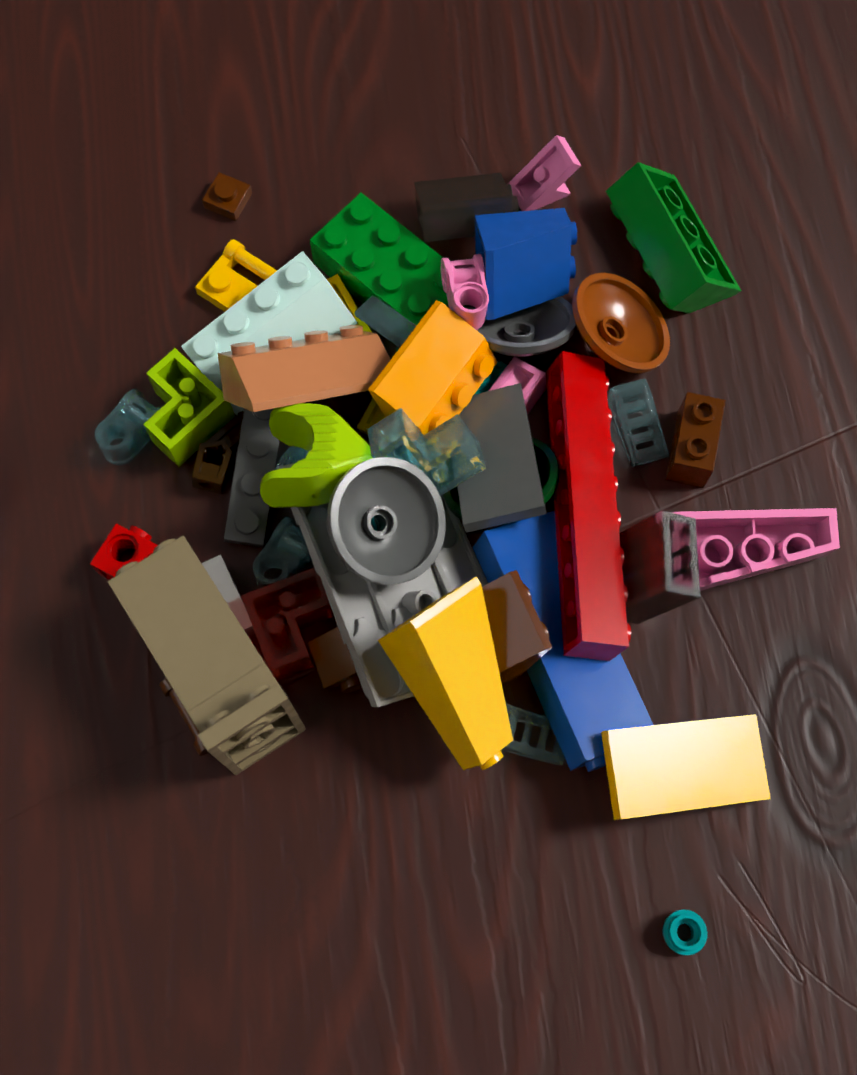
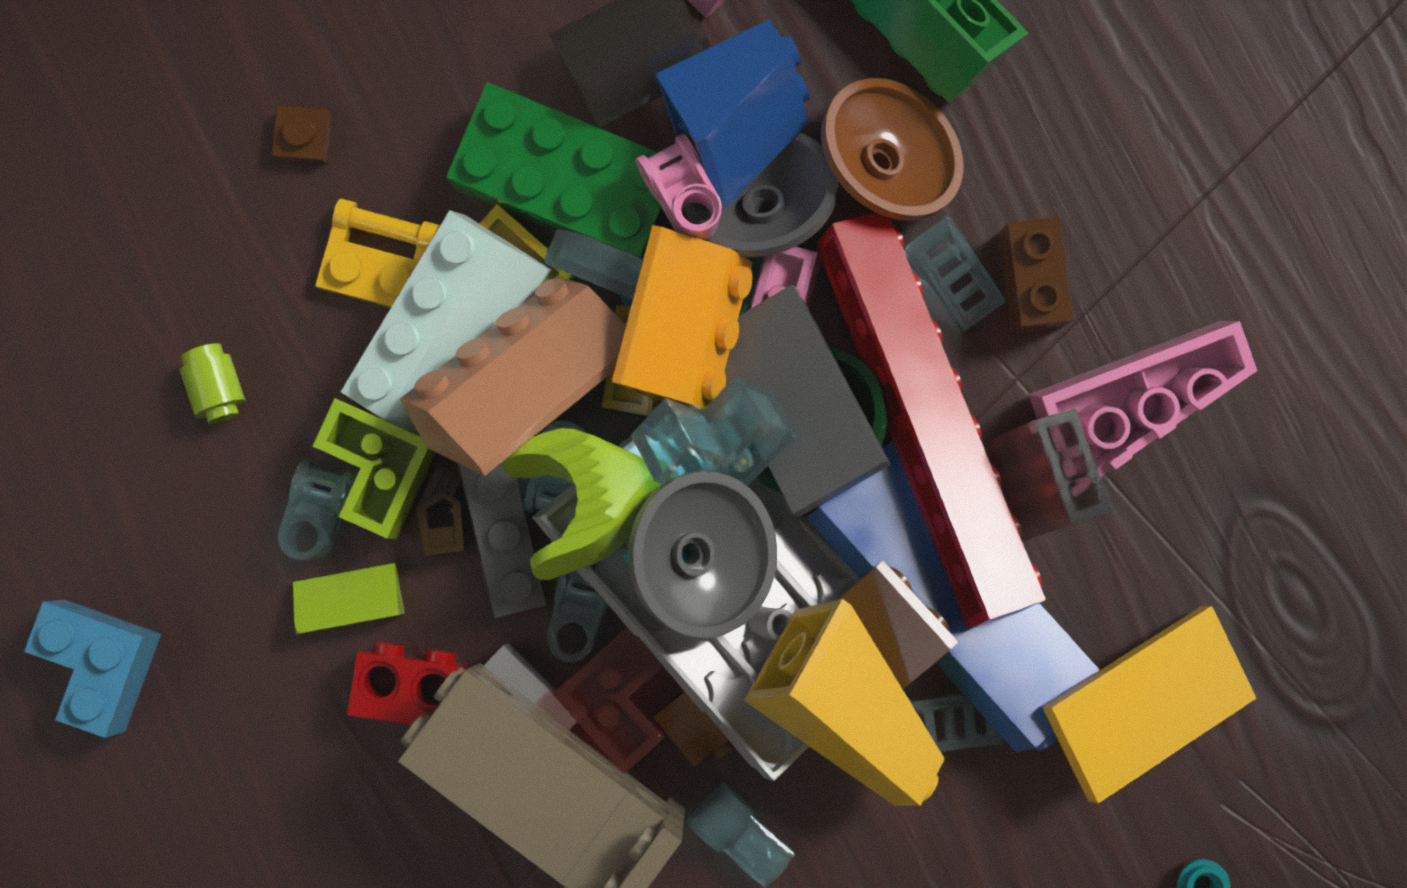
camera: 20 degrees left, 15 degrees up
(98, 322) = (211, 383): none -> lime brick
(126, 495) = (347, 598): none -> lime slope
(336, 752) = (730, 826): none -> clear light blue piece

